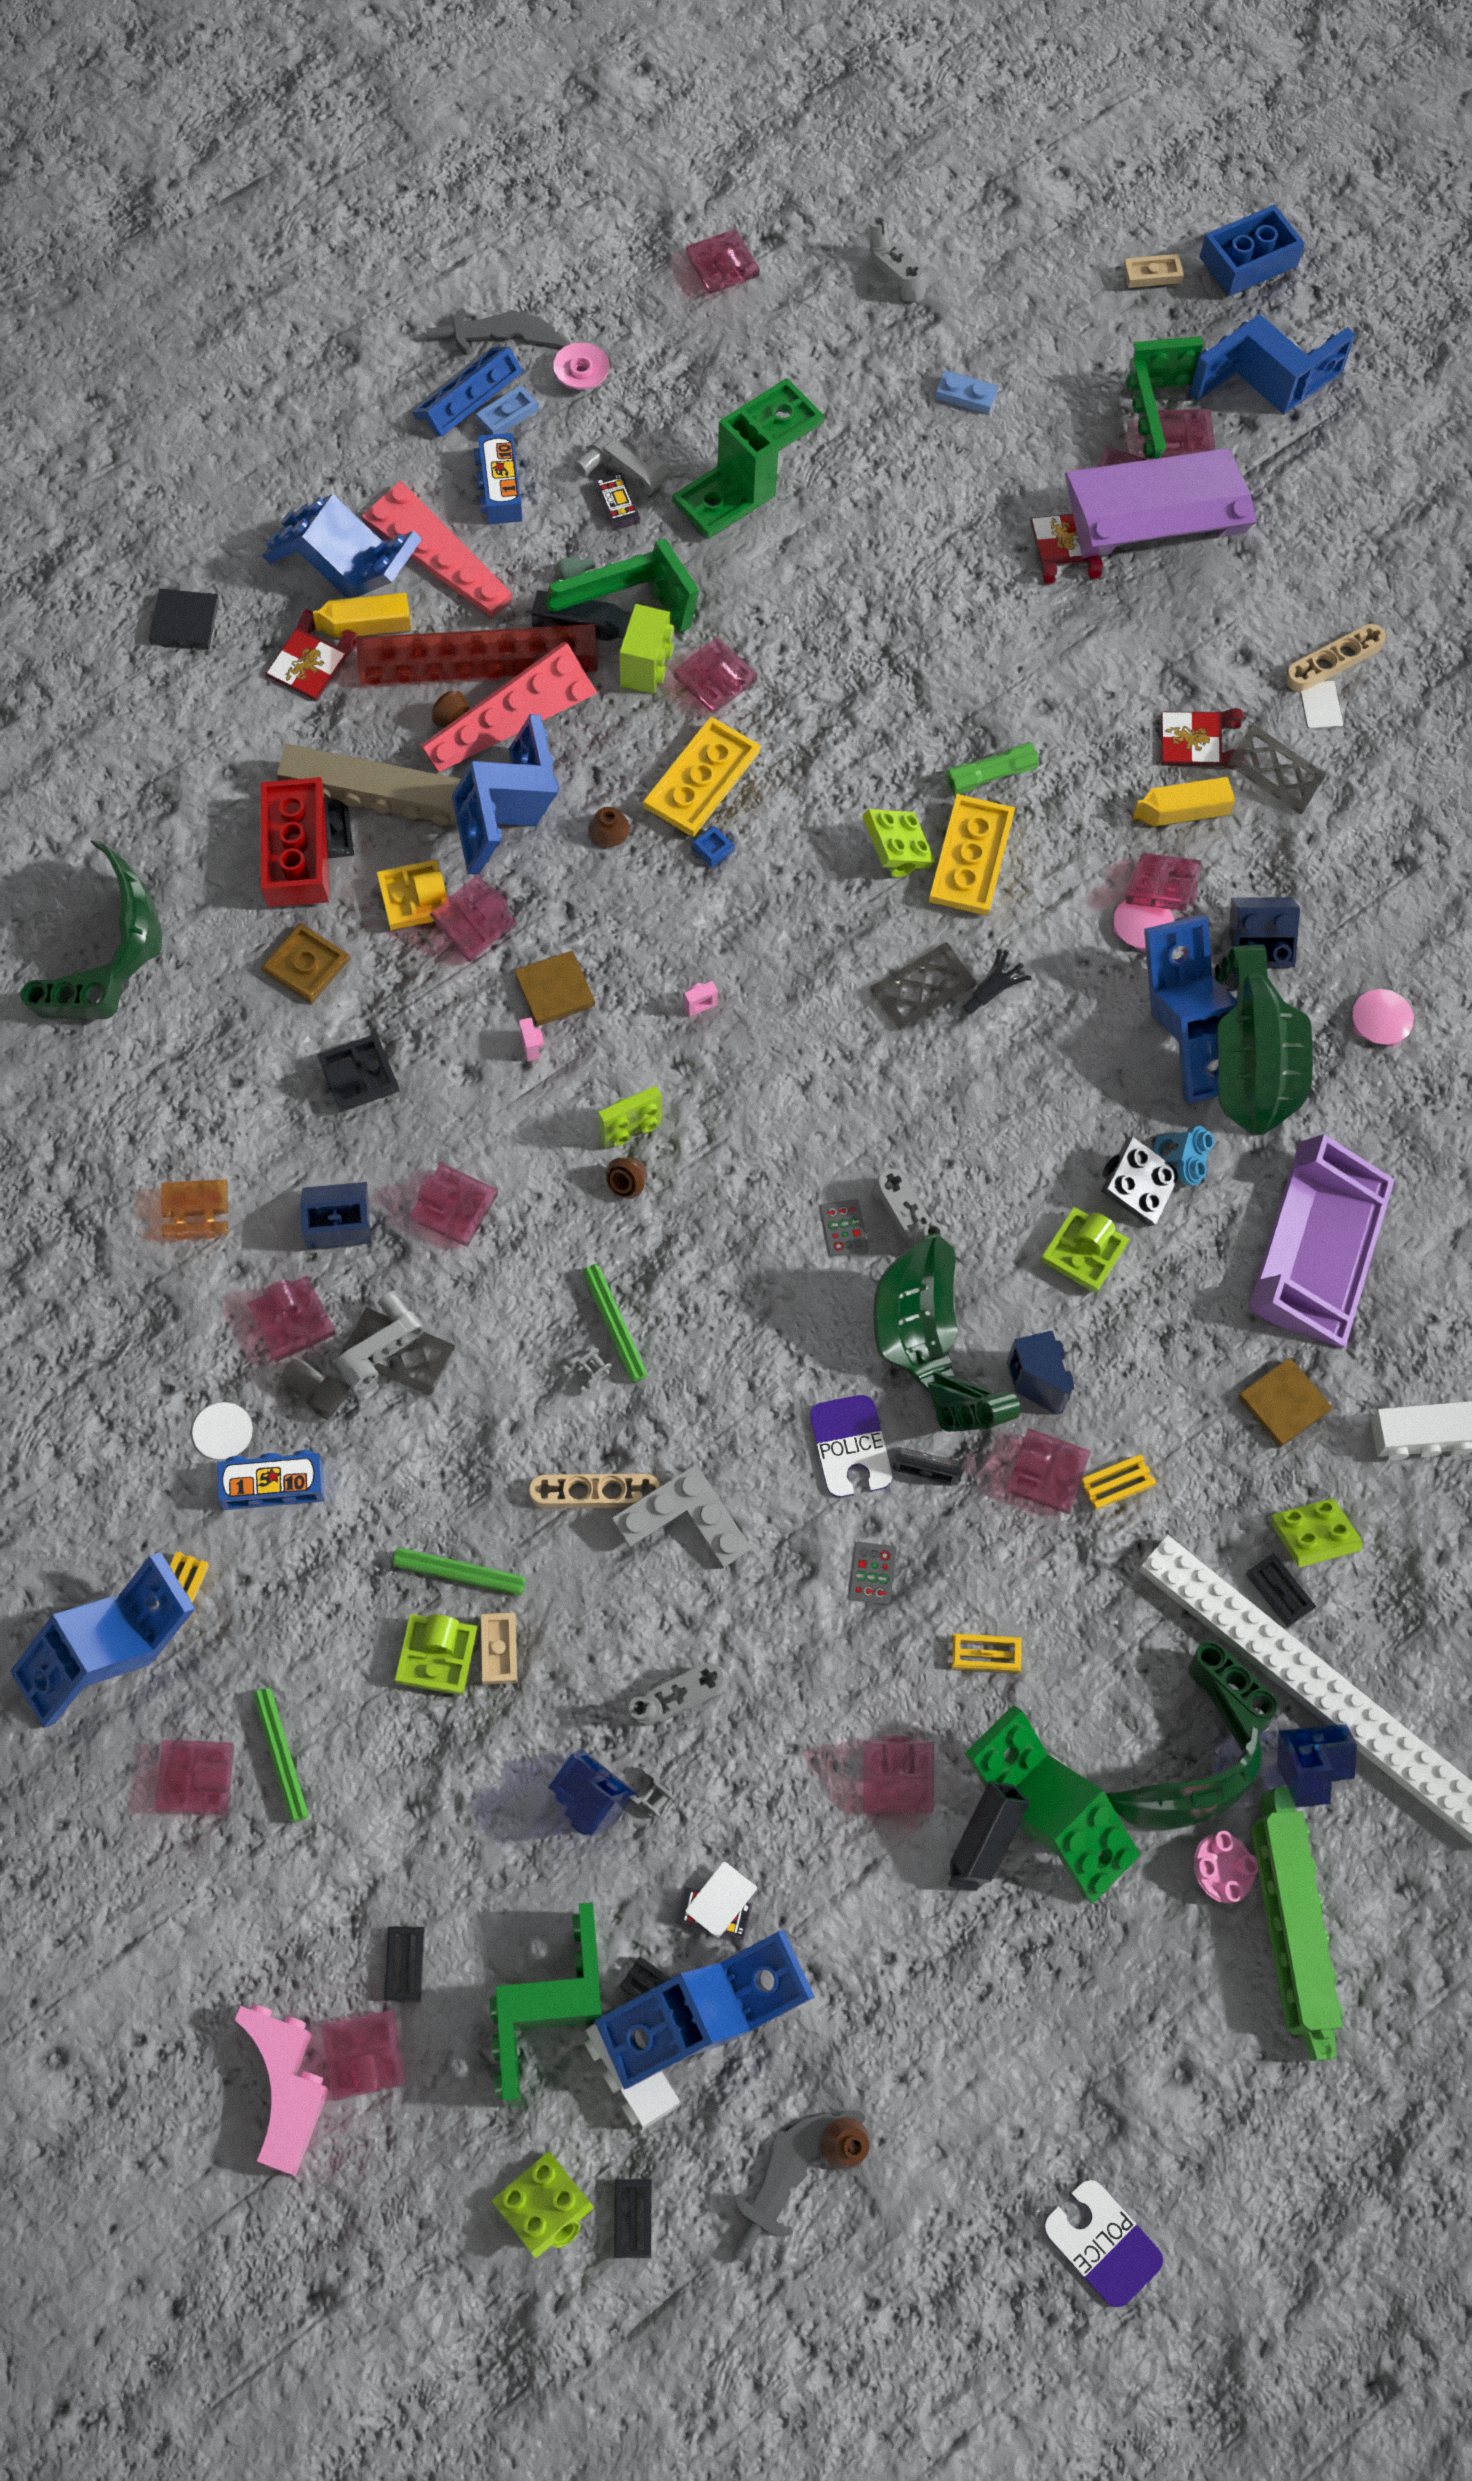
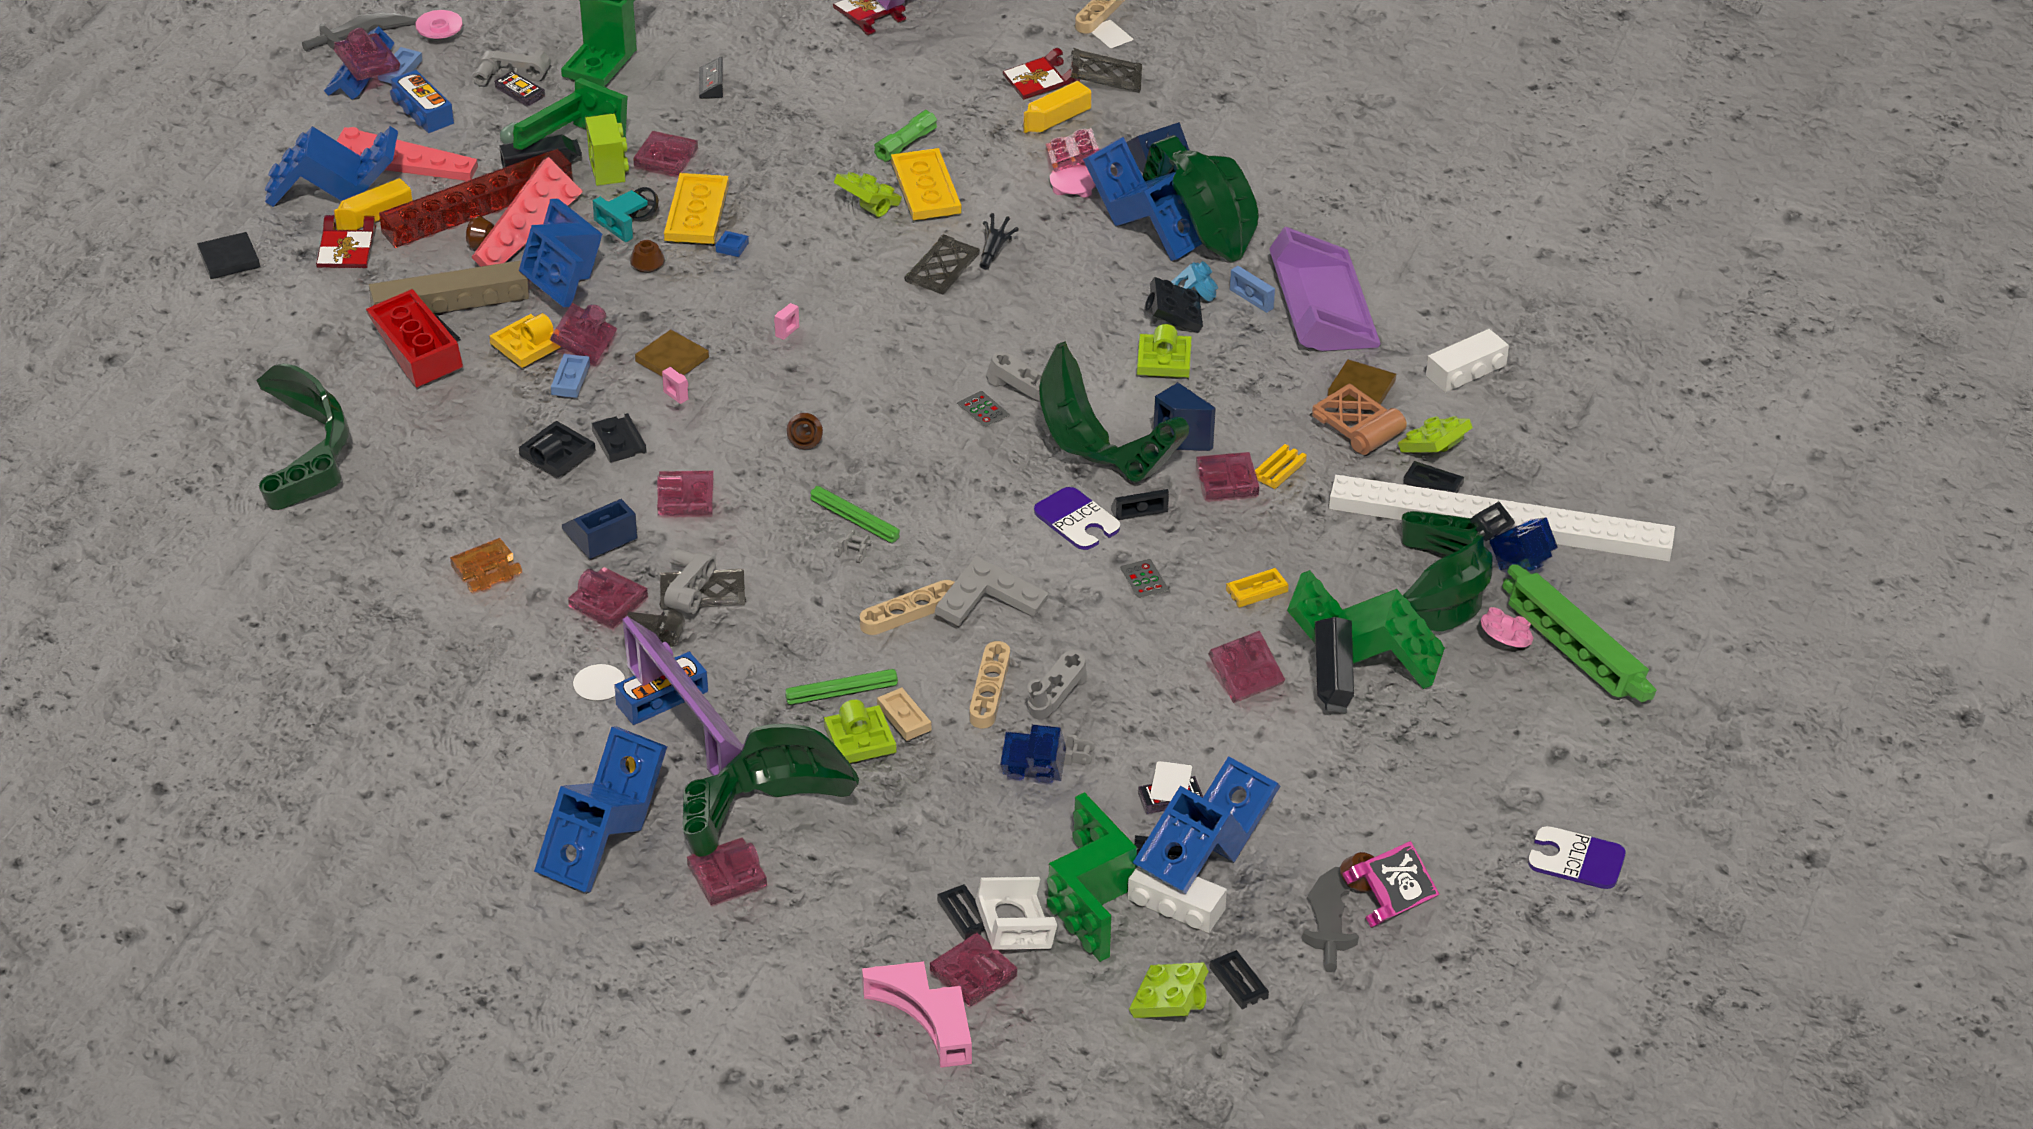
camera: 25 degrees left, 25 degrees down
(236, 1675) = (772, 760): none -> dark green piece
(259, 1542) = (651, 659): none -> medium lavender slope
(280, 1755) = (783, 835): bright green axle -> none
(305, 963) = (469, 407): pearl gold tile -> none
(430, 969) = (570, 375): none -> medium blue plate
(433, 1084) = (618, 438): none -> black plate
(467, 391) = (366, 55): none -> clear pink plate
(475, 1983) = (1030, 932): none -> white panel
(613, 1647) = (990, 684): none -> tan beam
(622, 744) = (614, 214): none -> teal piece
(630, 1117) = (785, 393): lime plate -> none
(830, 581) = (711, 79): none -> slope
(872, 2183) = (1396, 880): none -> flag
(1241, 1188) = (1252, 289): none -> medium blue plate
(1255, 1484) = (1371, 429): none -> nougat piece
(1275, 1718) = (1485, 525): none -> black tile
(1382, 1017) = (1275, 172): bright pink dish -> none

